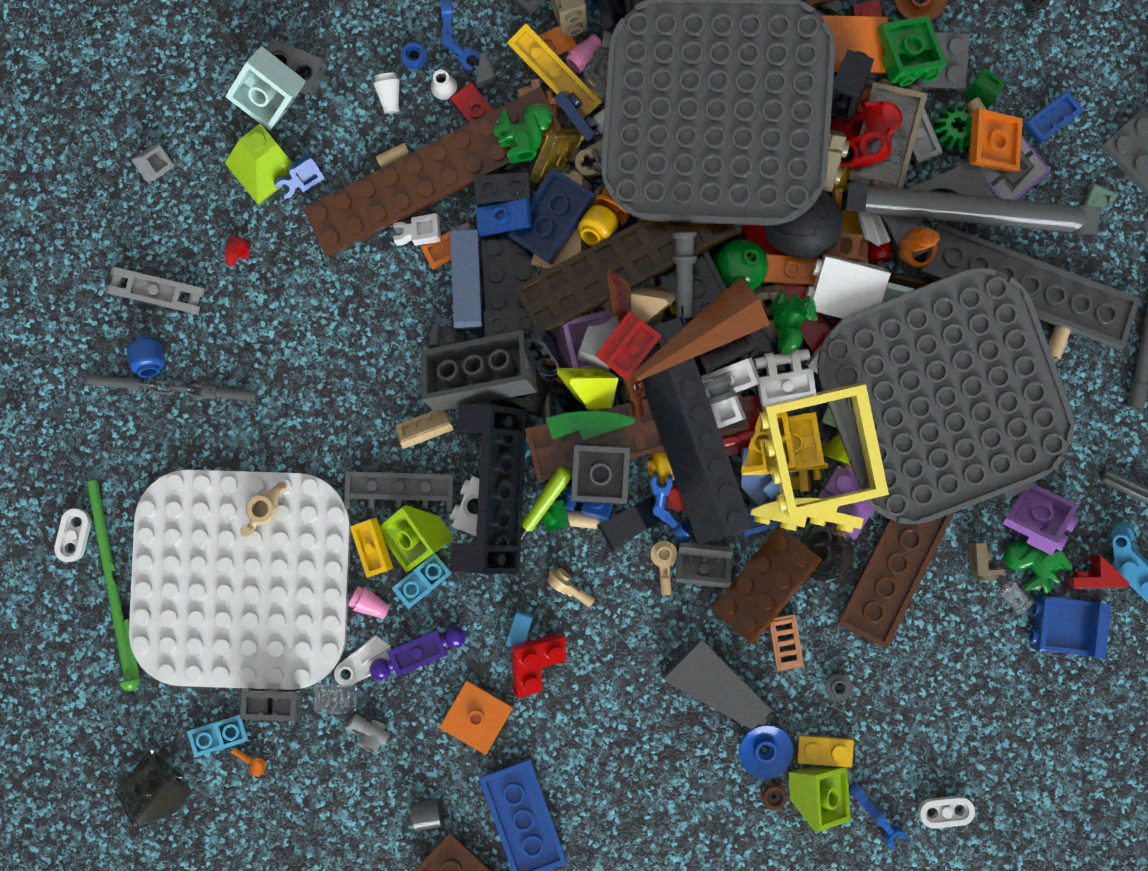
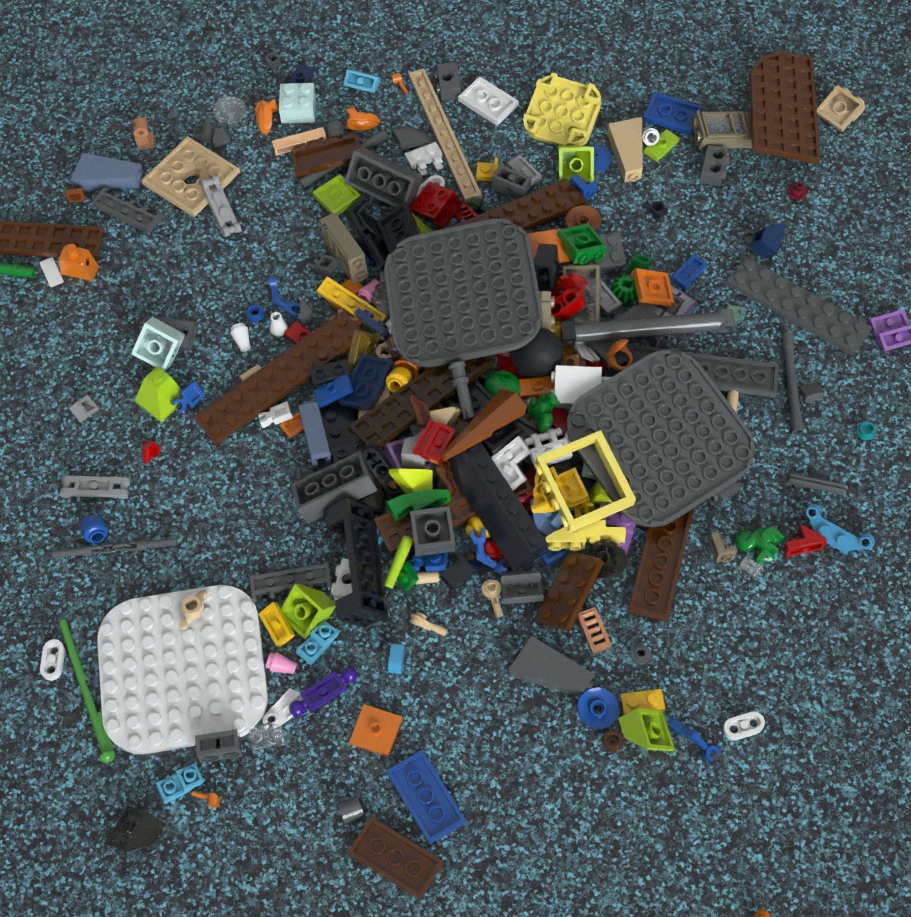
camera: 15 degrees left, 25 degrees down
(372, 734) = (296, 755): light grey plate -> none
(423, 428) = (301, 537): tan plate -> none
(525, 136) = (337, 339): green animal -> none
(530, 658) = (407, 677): red plate -> none
(720, 389) = (503, 458): dark grey wheel -> none
(1043, 518) = (754, 508): medium lavender plate -> none
(1070, 626) = (795, 580): blue panel -> none

